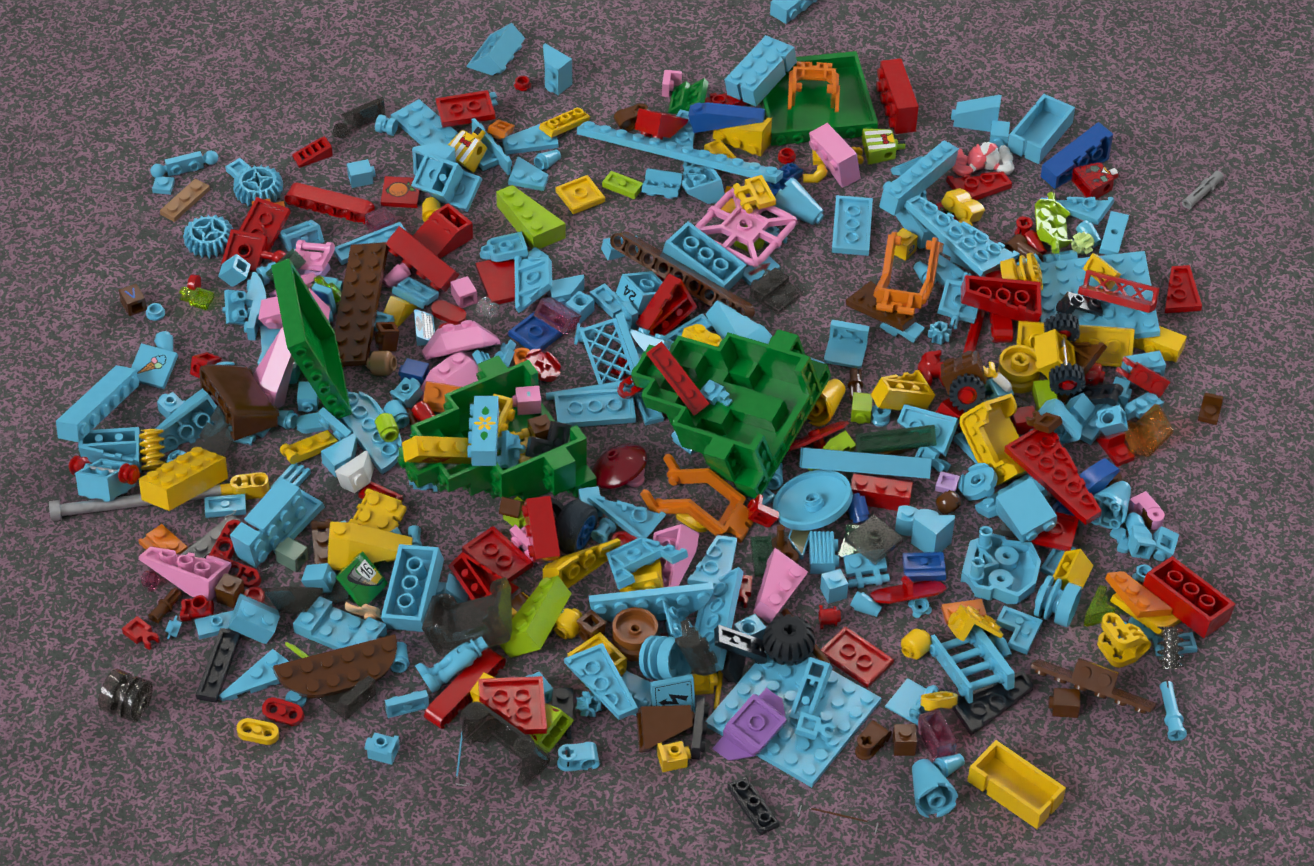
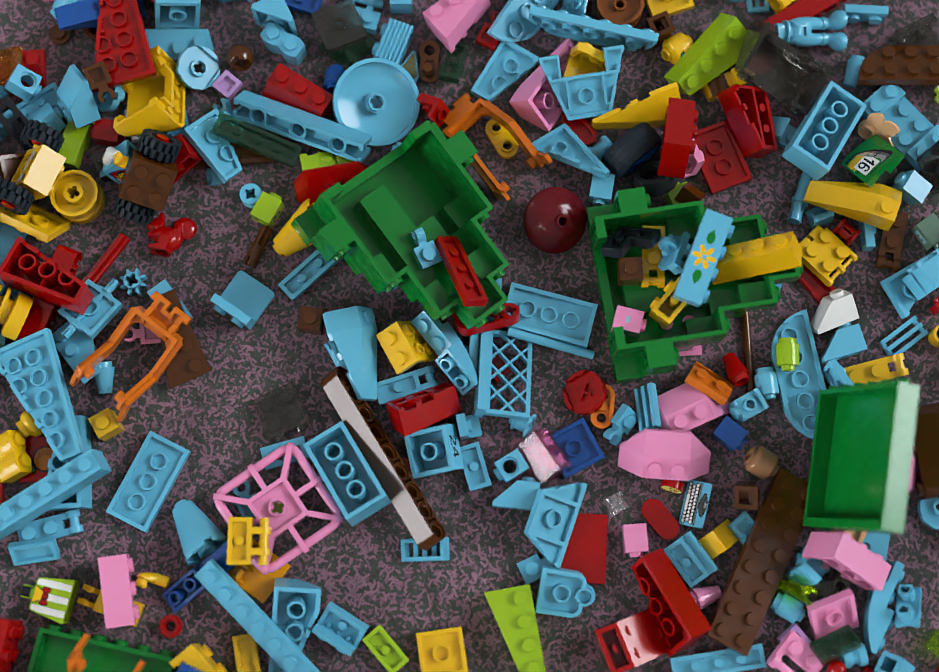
camera: 155 degrees left, 30 degrees up
(907, 389) = (217, 200): yellow wedge -> none

